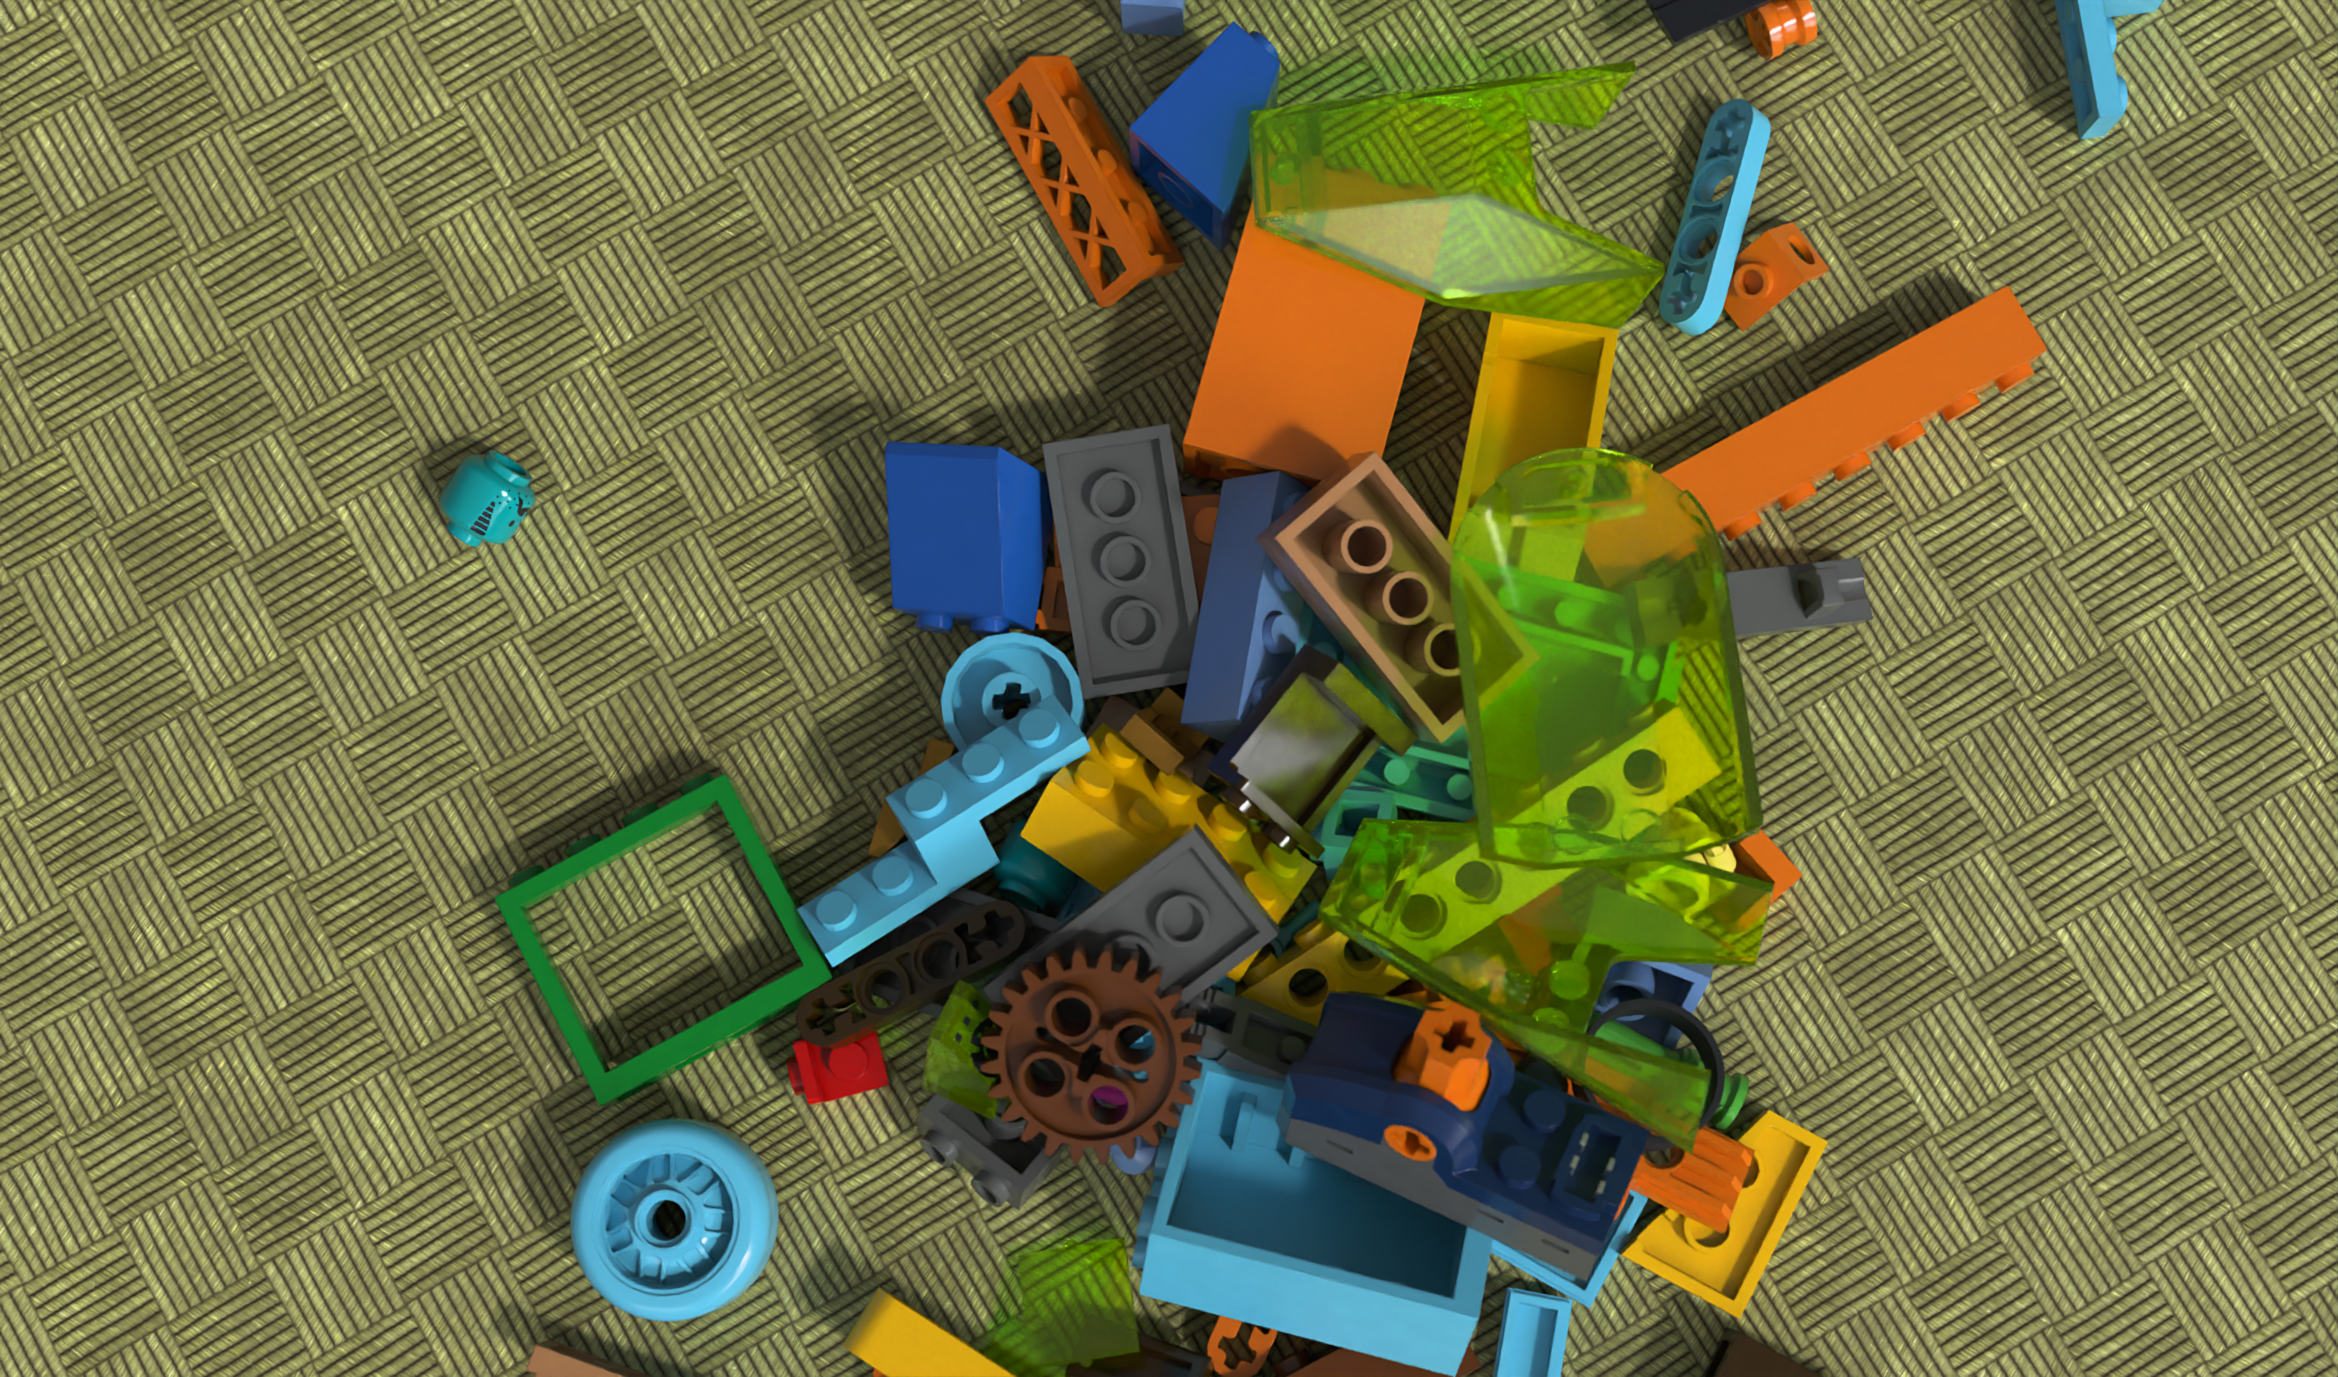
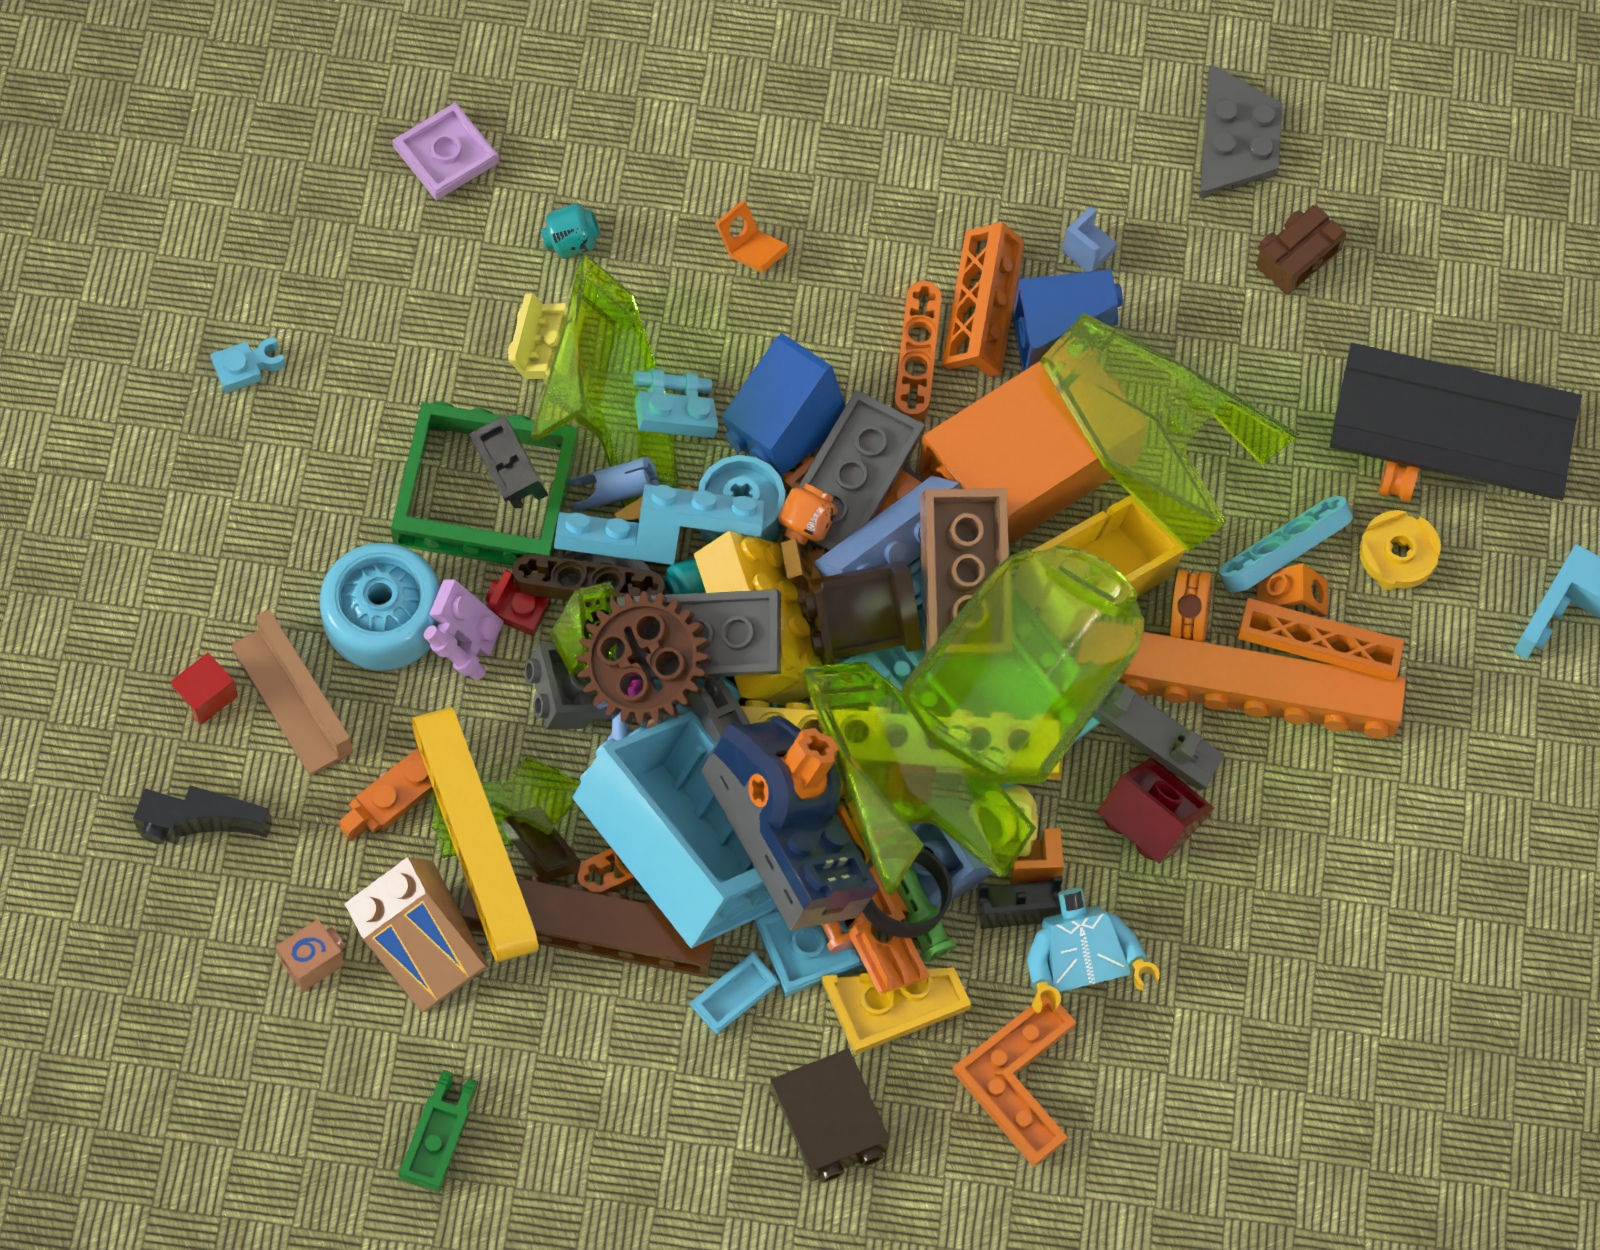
camera: 30 degrees right, 15 degrees down
(212, 1023) = (241, 366): none -> medium azure plate
(232, 513) = (445, 151): none -> lavender plate
(576, 675) = (534, 336): none -> light yellow bracket
(681, 902) = (508, 462): none -> black hinge
(714, 678) = (593, 372): none -> clear neon green windscreen
(732, 333) = (751, 245): none -> orange bracket
(796, 1149) = (468, 620): none -> lavender plate
(825, 648) = (675, 413): none -> medium azure plate
(838, 800) = (616, 483): none -> medium blue piece
(1050, 317) = (918, 351): none -> orange beam
(1120, 665) = (807, 514): none -> orange head
(1677, 398) = (1191, 605): none -> orange head
(1792, 941) = (1017, 903): none -> black hinge
(1840, 700) = (1154, 810): none -> dark red slope
(1856, 149) = (1407, 531): none -> yellow plate
(1858, 310) = (1321, 639): none -> orange fence
(1909, 964) = (1082, 950): none -> medium azure torso
(1914, 1174) = (992, 1080): none -> orange plate

